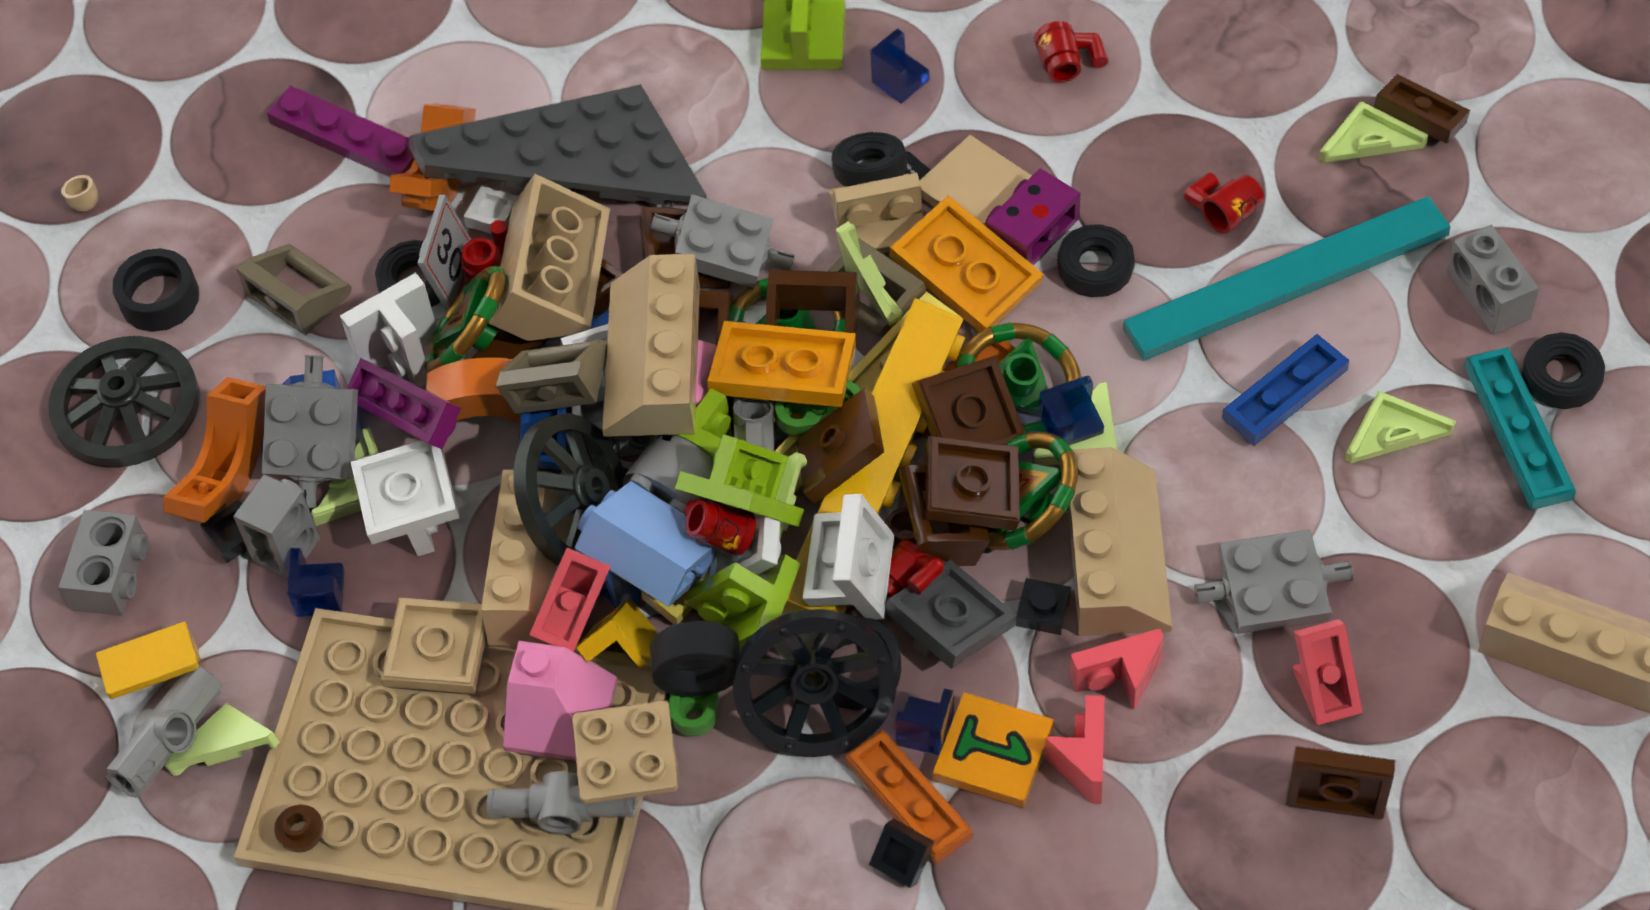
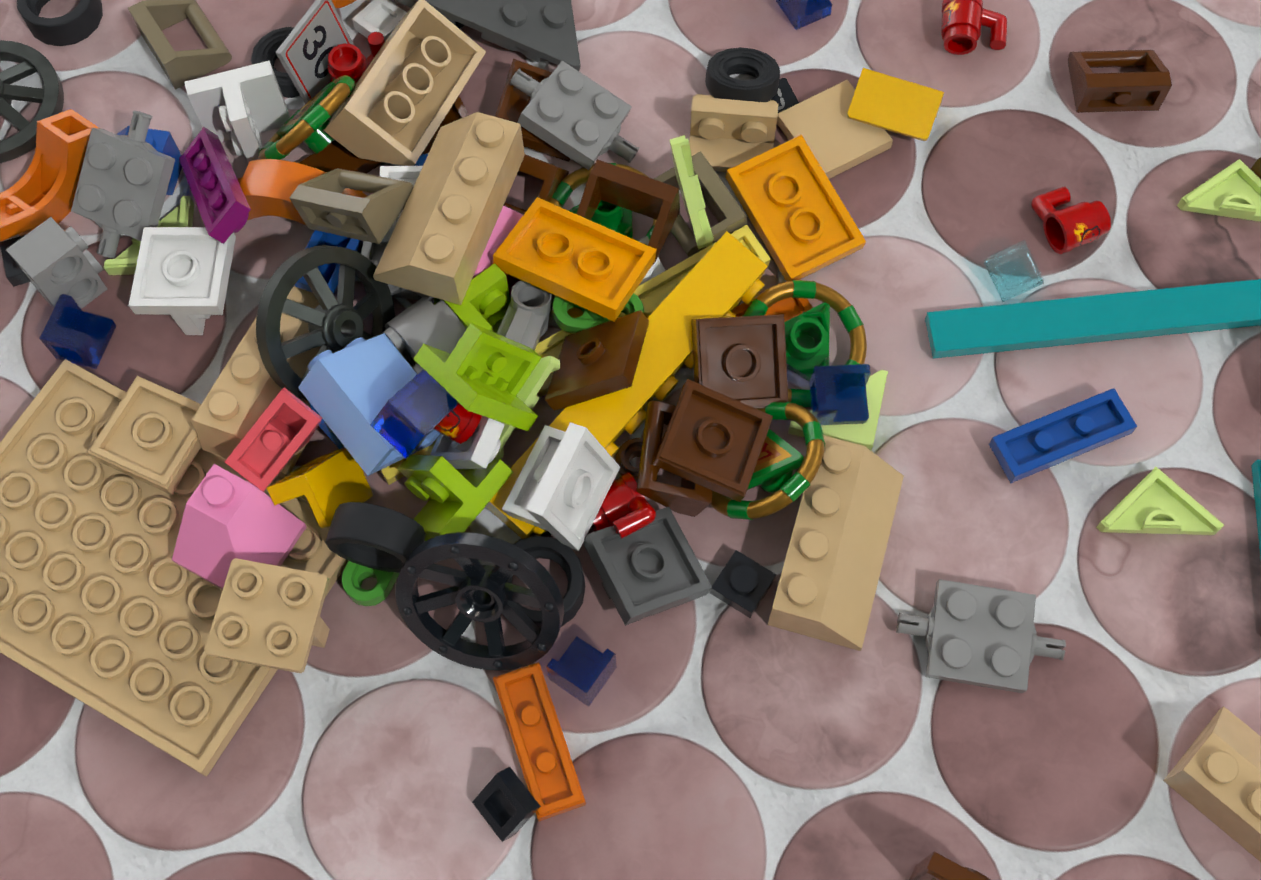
camera: 15 degrees right, 10 degrees up
(554, 804) = (184, 638): light grey pin -> none
(698, 531) = (413, 413): none -> clear blue panel
(993, 750) = (638, 720): light orange tile -> none
(1024, 143) = (895, 104): none -> yellow panel
(1036, 215) = (879, 180): magenta brick -> none
(1081, 756) = (722, 766): coral slope -> none
(1099, 282) = (929, 219): black tyre -> none
(1128, 660) = (806, 674): coral slope -> none
(1189, 260) = (1014, 270): none -> clear light blue slope
(1228, 71) = (1118, 90): none -> reddish brown tile
(1327, 672) = (999, 758): coral slope -> none

